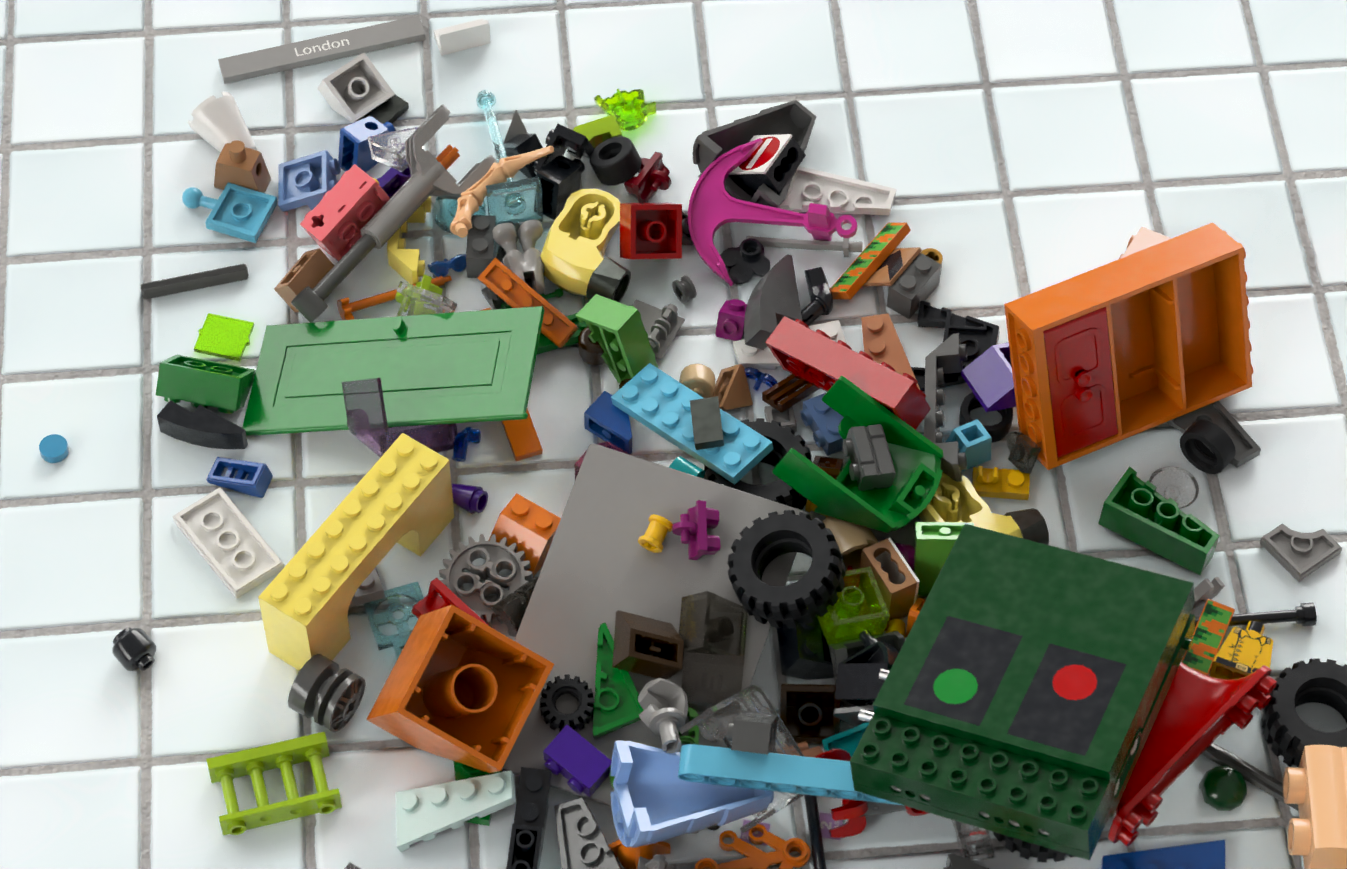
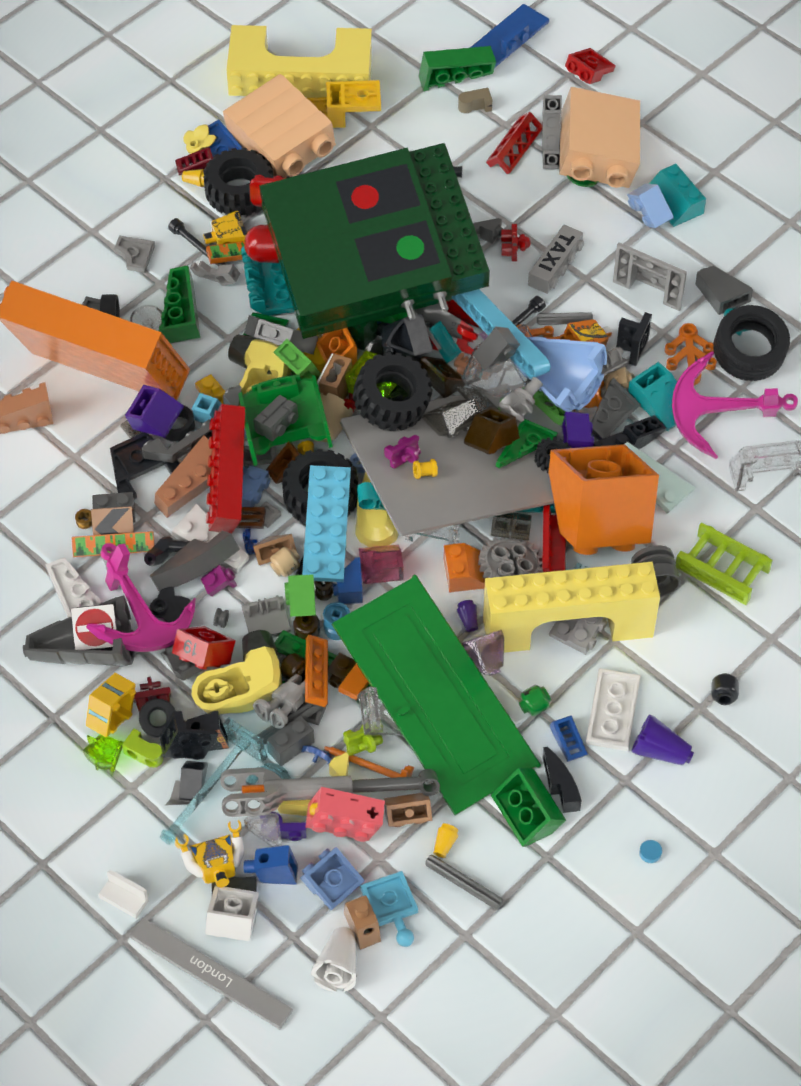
camera: 130 degrees left, 0 degrees up
(139, 536) = (661, 743): none -> dark purple cone
(224, 337) = (485, 833): clear neon green piece -> none
(249, 295) = (445, 839): none -> yellow cone
(307, 473) = (534, 700): none -> green head
(421, 101) = (215, 858): none -> torso
(498, 173) = (263, 759): light nougat animal -> none
(563, 301) = (293, 665): none -> dark brown head
(575, 373) = (332, 613): none -> dark azure wheel
(661, 123) = (110, 705): none -> yellow container
(706, 423) = (327, 501): pearl dark grey tile -> none
(1022, 451) = (187, 388): clear smoke plate -> none

